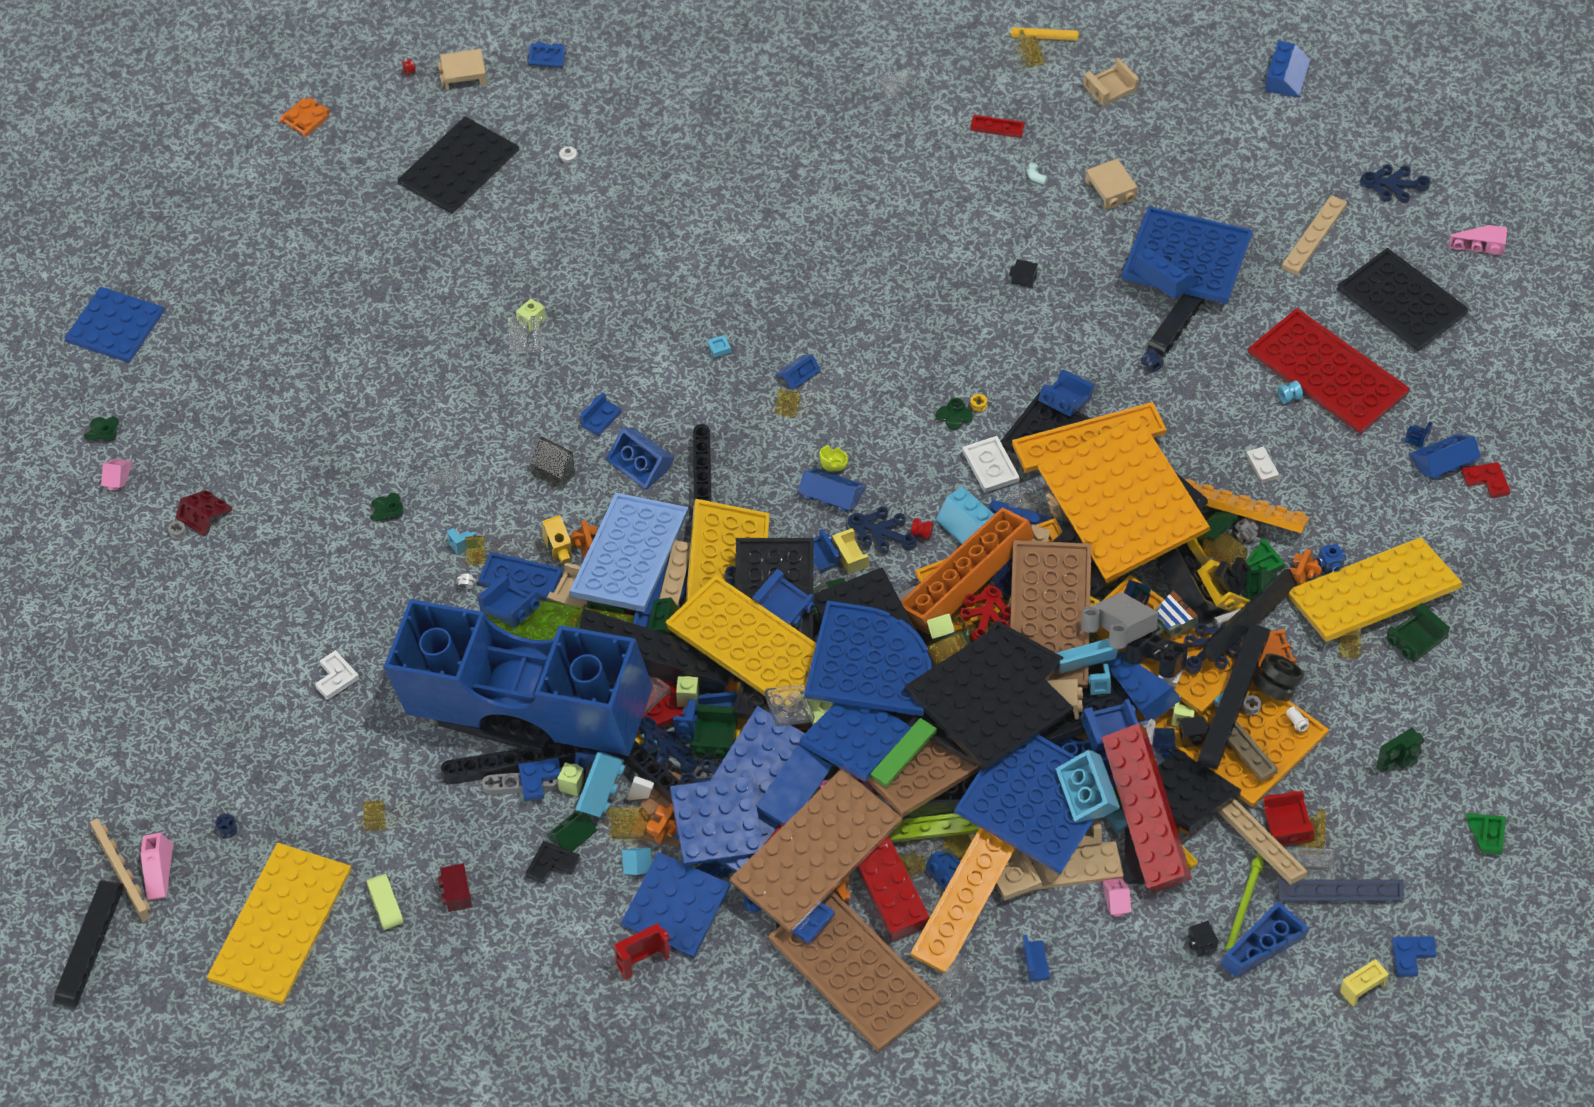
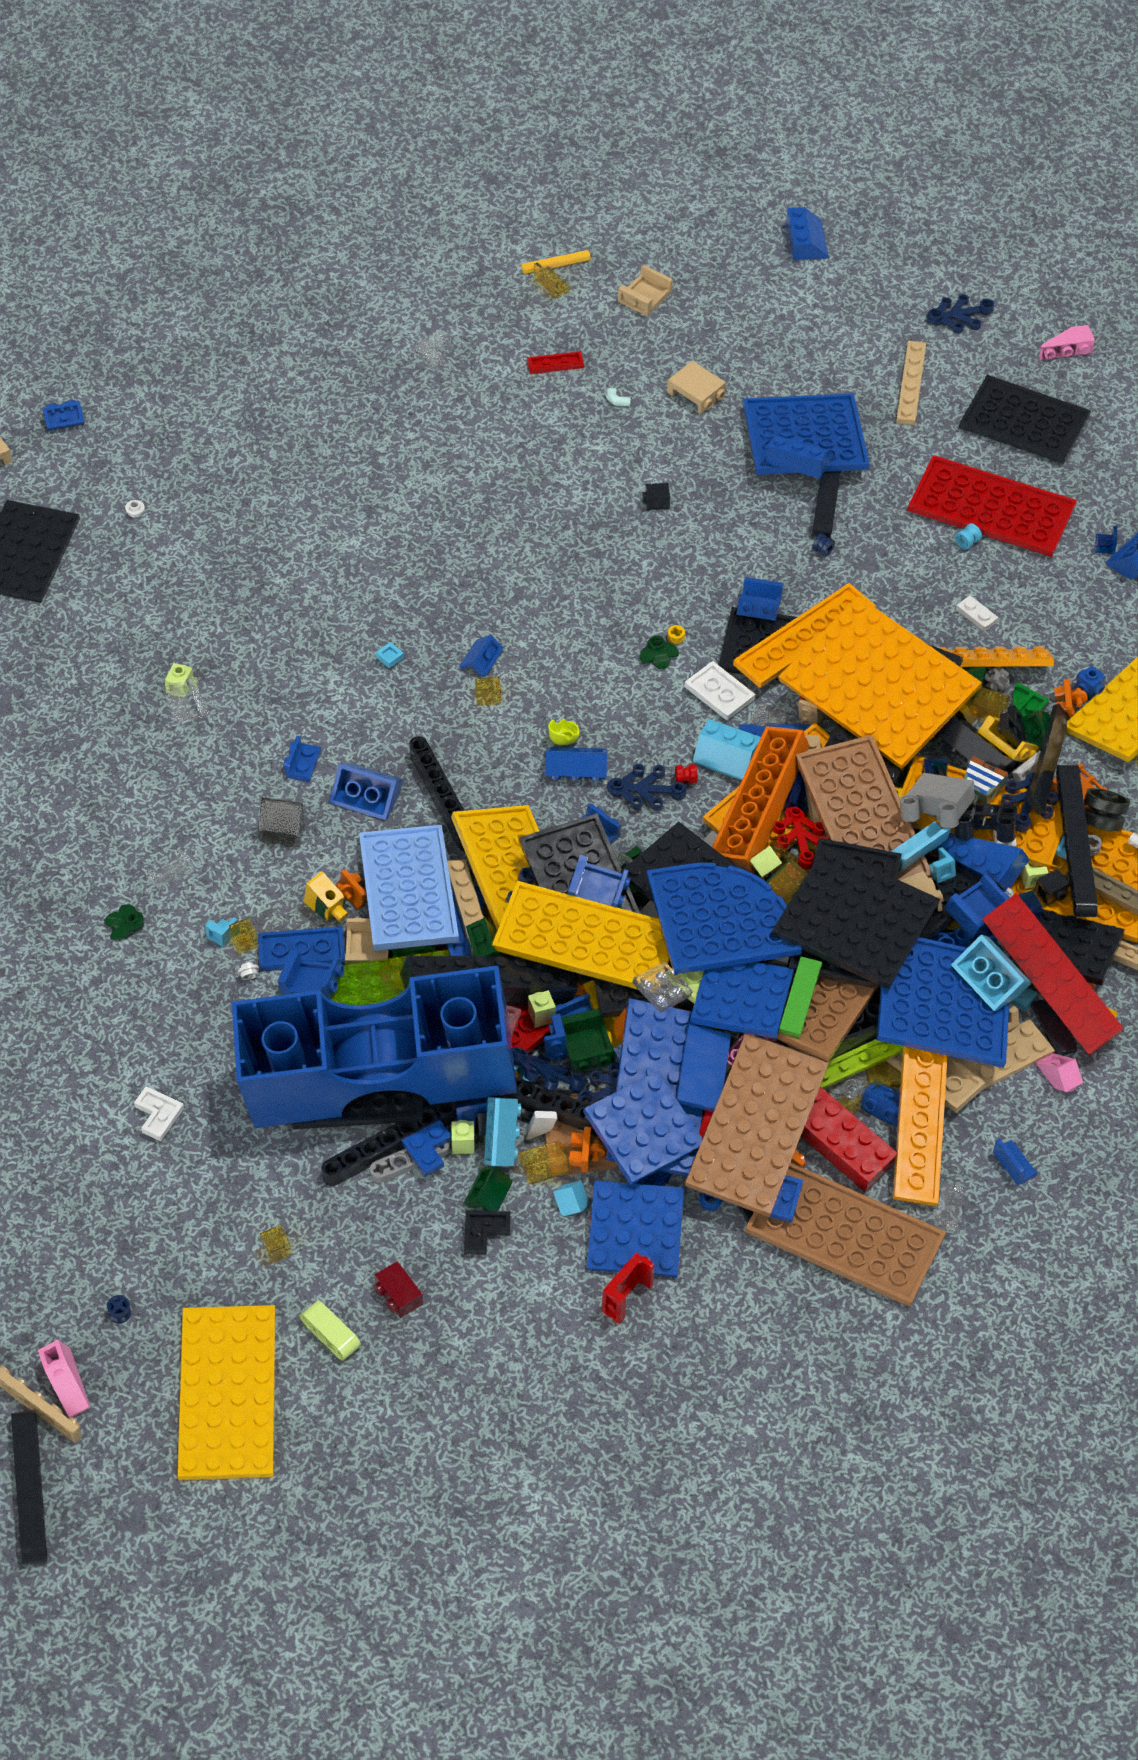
camera: 25 degrees left, 0 degrees up
(851, 555) = (631, 825): light yellow panel -> none

